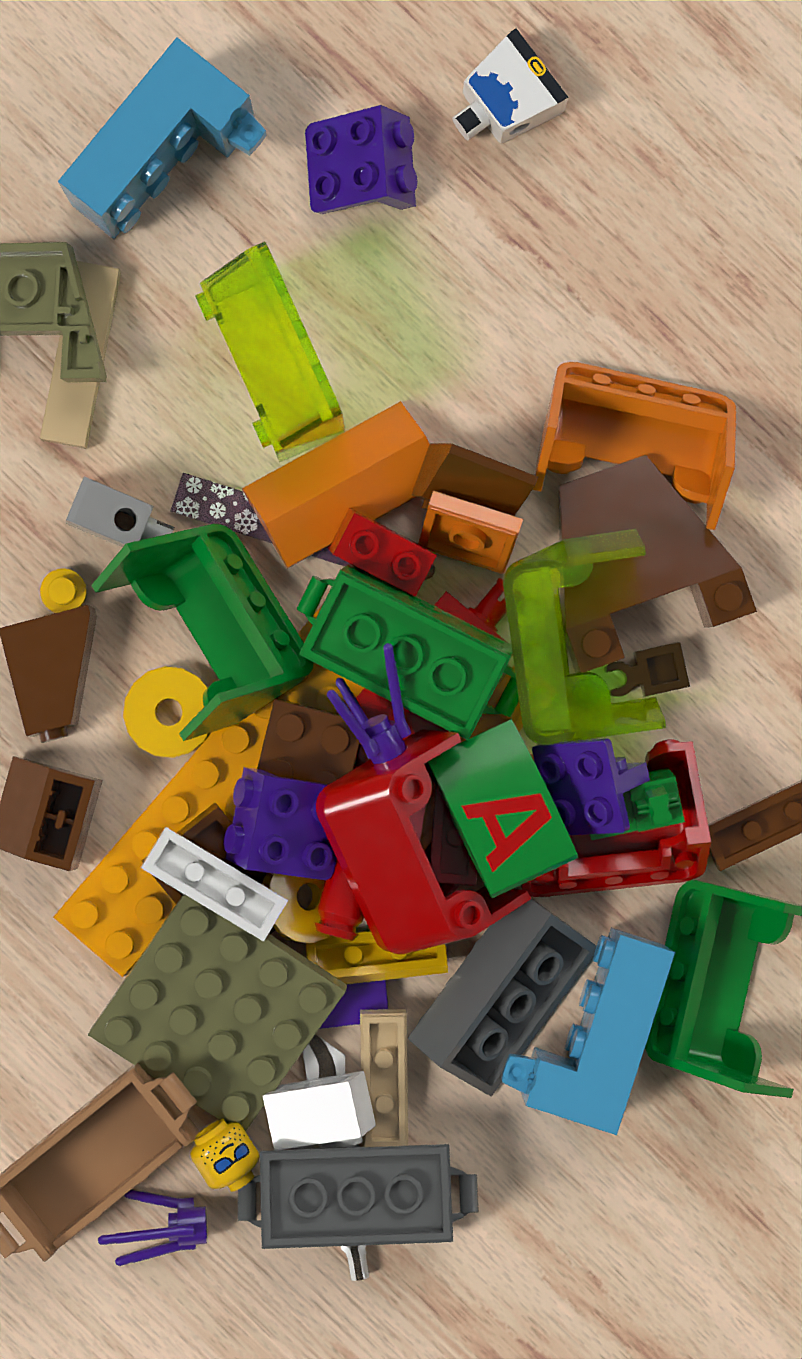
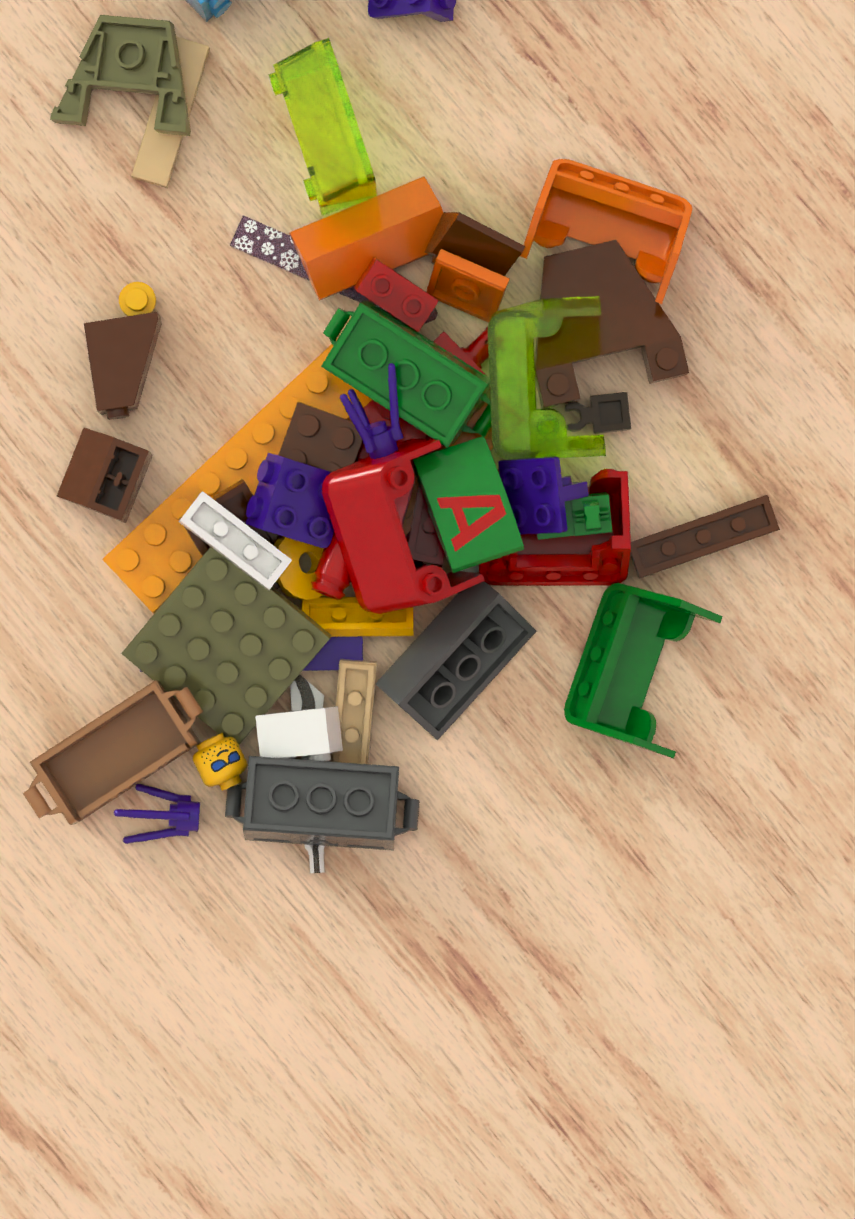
camera: 10 degrees right, 0 degrees up
(95, 512) = (170, 242): light grey torso -> none
(142, 706) = (207, 384): yellow tile -> none
(227, 611) = (266, 328): green windscreen -> none
(607, 1044) = (536, 699): dark azure hinge -> none

